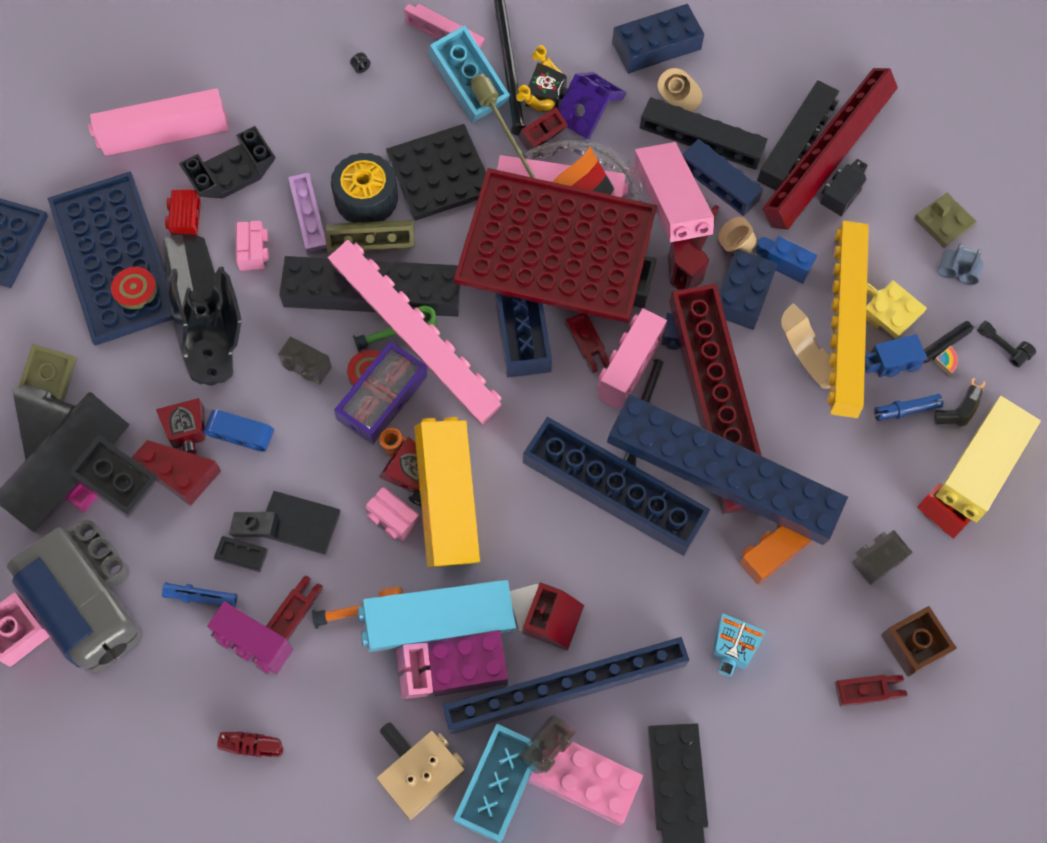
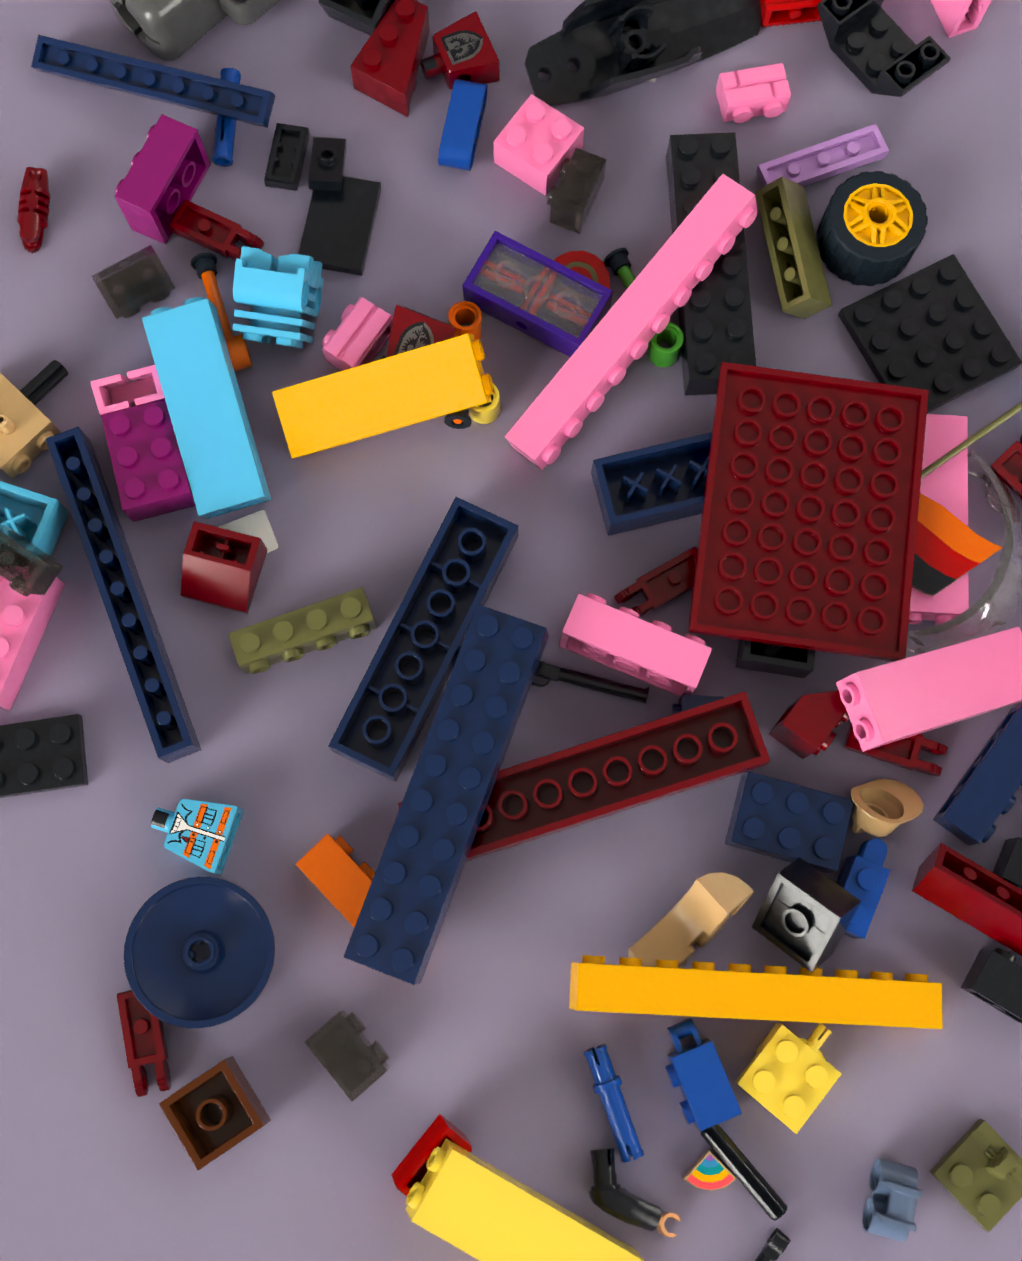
camera: 85 degrees right, 10 degrees up
(162, 646) = (153, 81): none -> dark blue plate
(265, 381) = (537, 144): none -> bright pink brick
(327, 667) = (134, 283): none -> clear smoke brick
(361, 558) = (277, 295): none -> medium azure piece
(602, 565) = (302, 631): none -> olive brick
(804, 282) = (805, 914): none -> black container
(816, 646) = (199, 952): none -> dark blue dish

